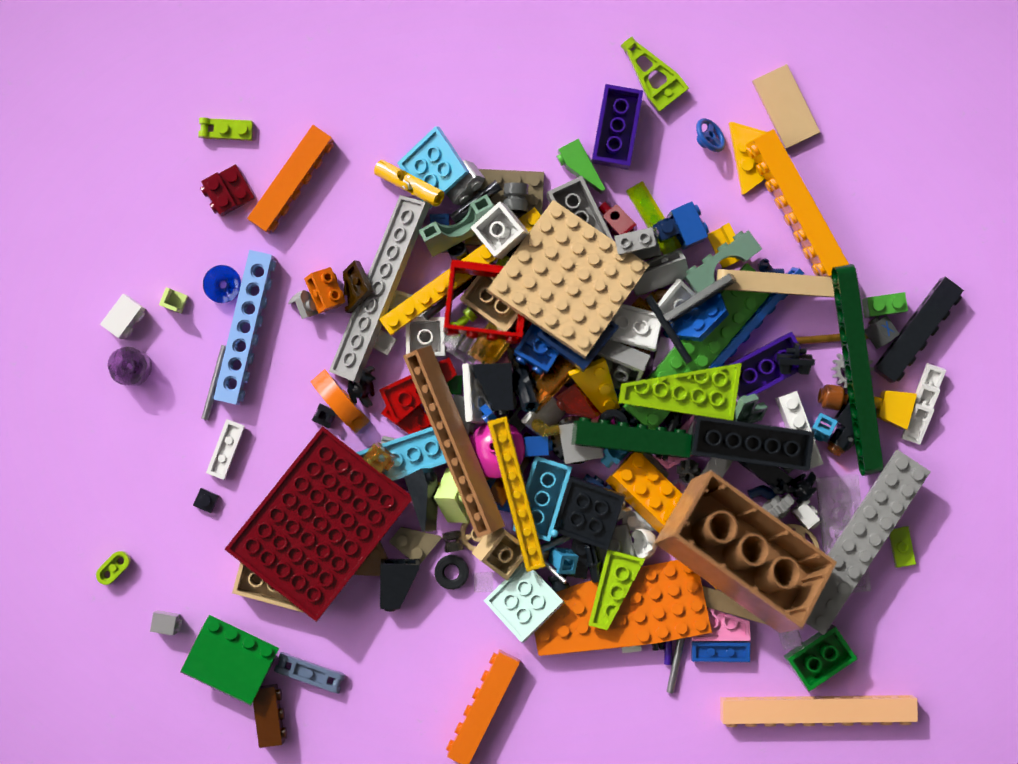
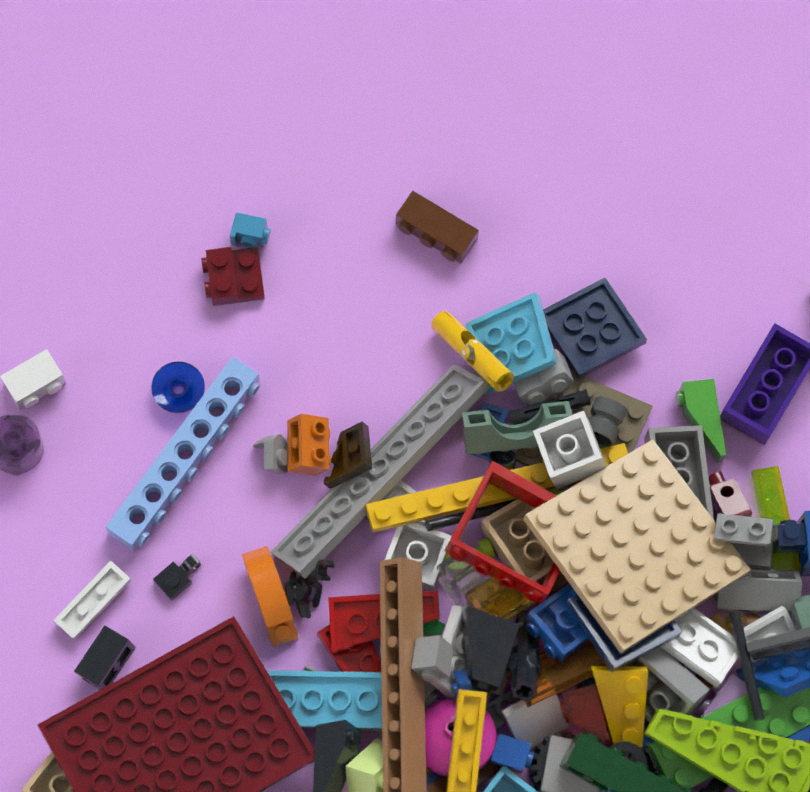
camera: 15 degrees right, 15 degrees down
(173, 300) = (106, 384): yellowish green panel -> none
(206, 500) = (37, 658): black plate -> none
(210, 397) = (100, 527): flat silver bar -> none
(225, 155) = (249, 231): none -> dark azure brick
(226, 129) = (263, 201): lime plate -> none
(250, 484) = (105, 658): none -> black hinge
(273, 413) = (175, 579): none -> black plate
(290, 179) = (320, 292): orange brick -> none
(324, 416) = (241, 607): black tile -> none
(351, 102) = (436, 227): none -> reddish brown brick
(373, 457) = (287, 679): clear orange brick -> none
(384, 342) = (358, 543): white plate -> none
(462, 407) = (432, 658): none -> light grey brick
(483, 133) = (592, 328): none -> dark blue plate
(543, 429) = (529, 733): clear yellow arm -> none

